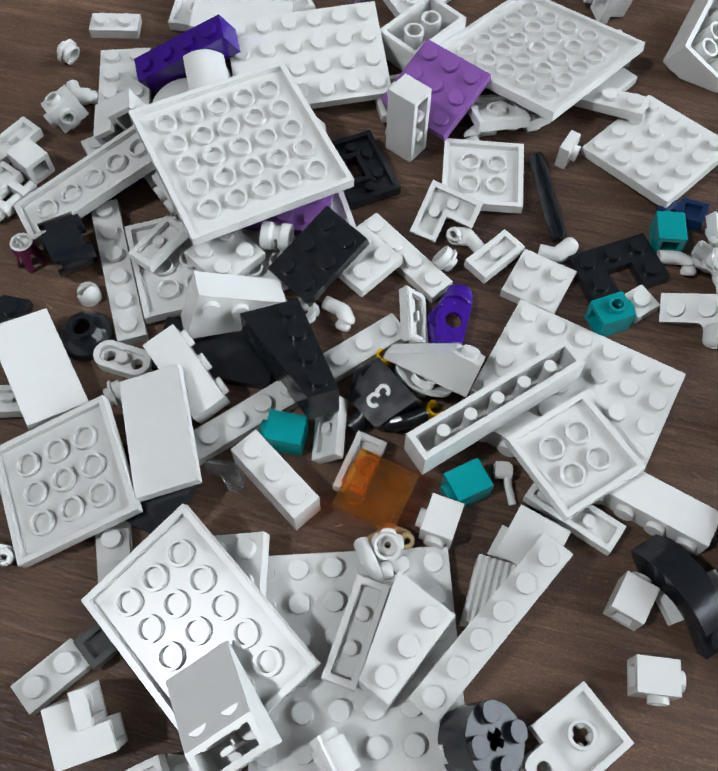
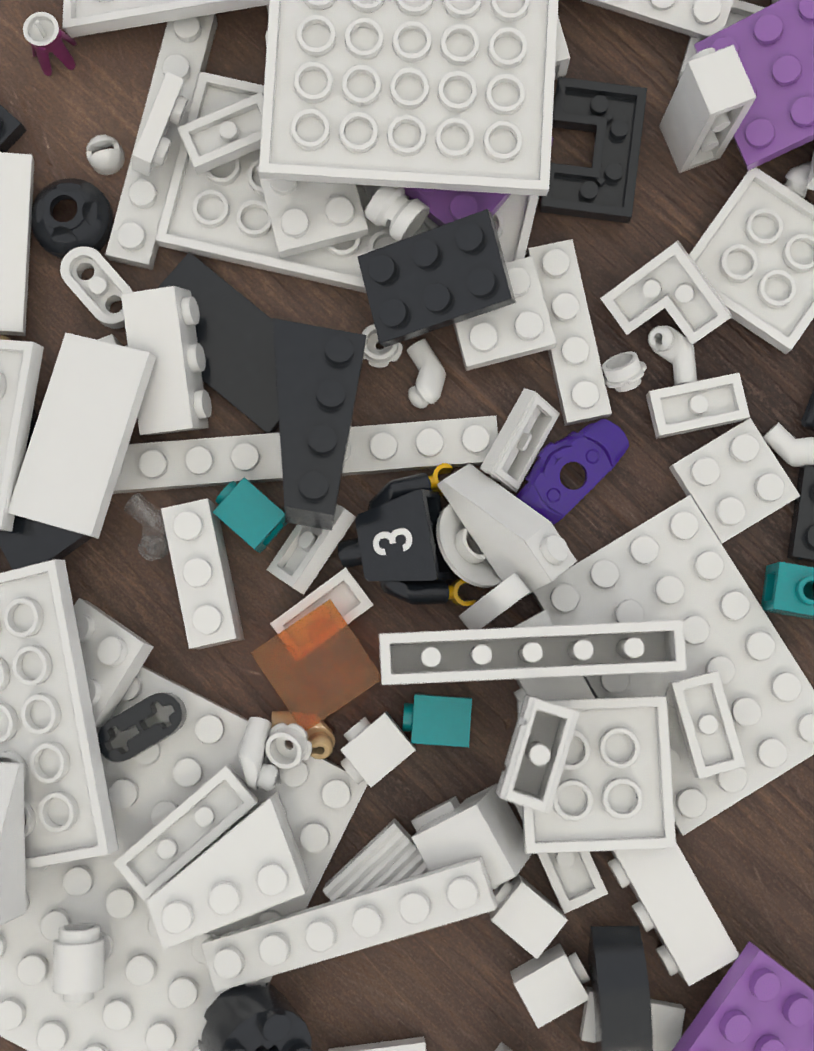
camera: 35 degrees right, 20 degrees up
(67, 244) = (104, 63): black brick -> none
(113, 393) = (65, 324): white plate -> none
(117, 247) = (167, 108): none -> white plate
(218, 299) = (267, 279): white wedge -> none
(297, 589) = (136, 717): none -> black beam
(458, 390) = (494, 602): none -> white beam
(504, 471) = (503, 726): white hand -> none
(537, 448) = (537, 754): none -> white brick
(590, 567) = (526, 915): none -> white brick
(614, 400) = (707, 724): none -> white plate

